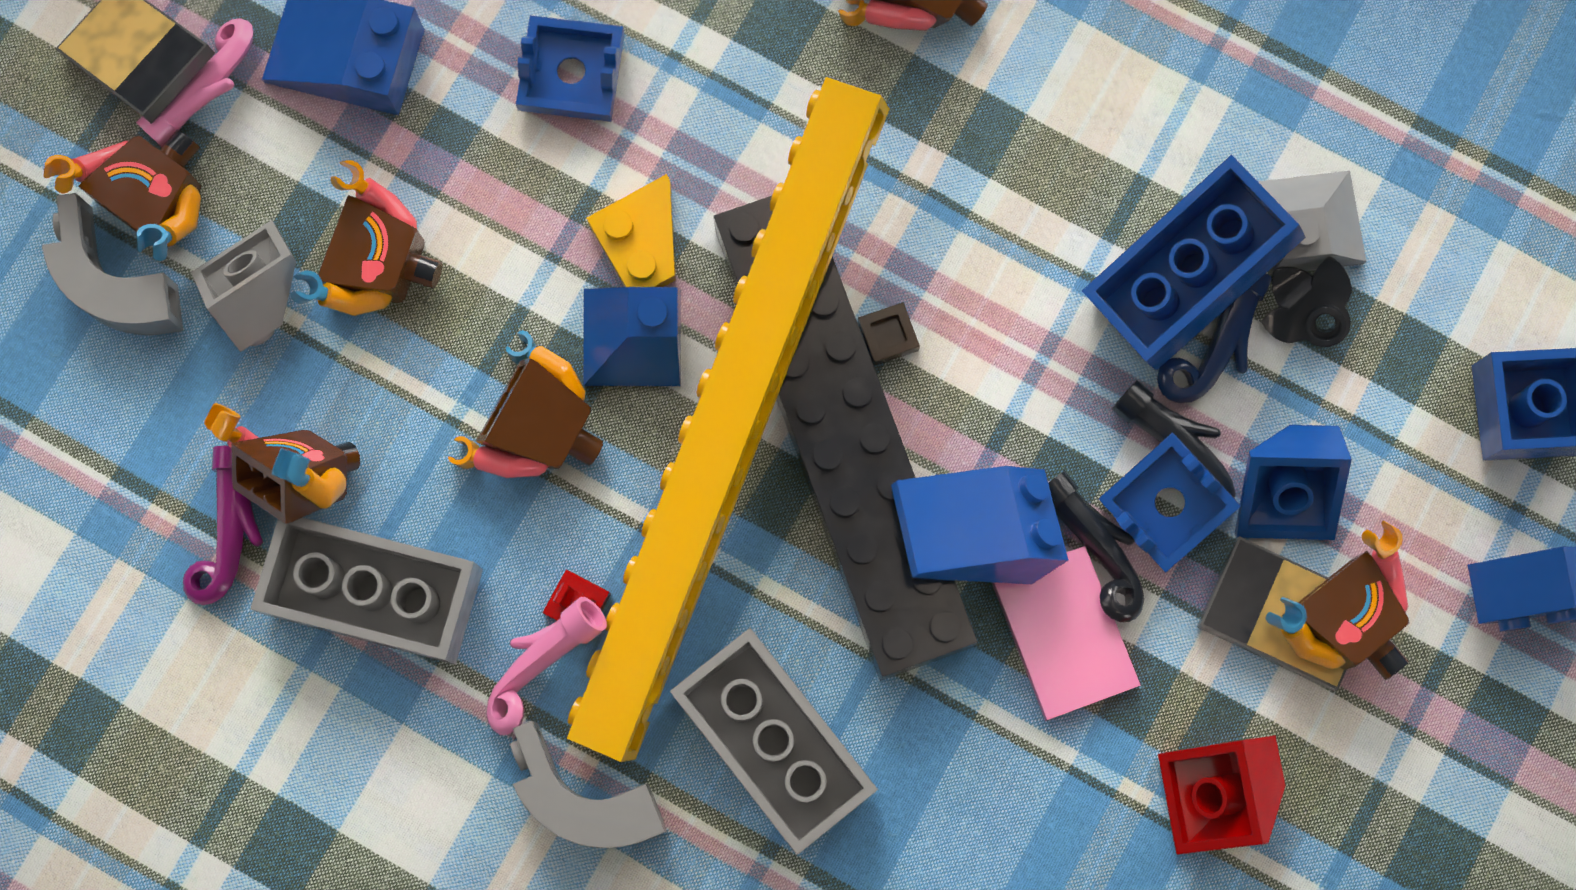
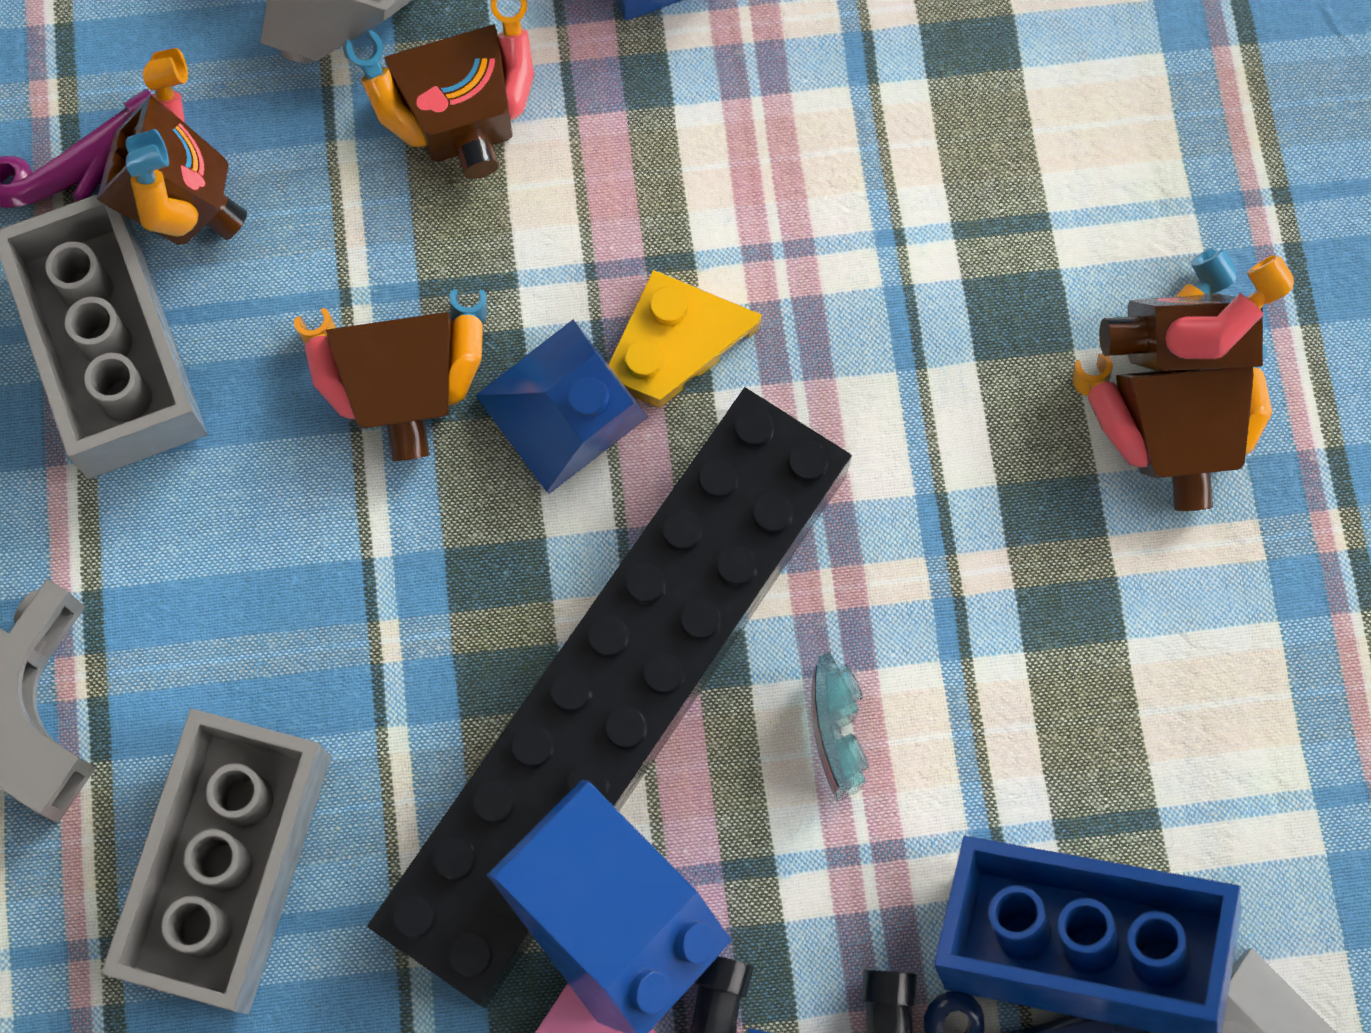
camera: 50 degrees right, 5 degrees down
(556, 40) = (806, 105): blue piece -> none
(569, 590) = (237, 553): red tile -> none
(577, 625) = (197, 563): bright pink plant -> none
(727, 420) = (533, 555): yellow brick -> none
(888, 334) = (765, 666): dark brown tile -> none
(941, 310) = (833, 707): none -> clear light blue slope

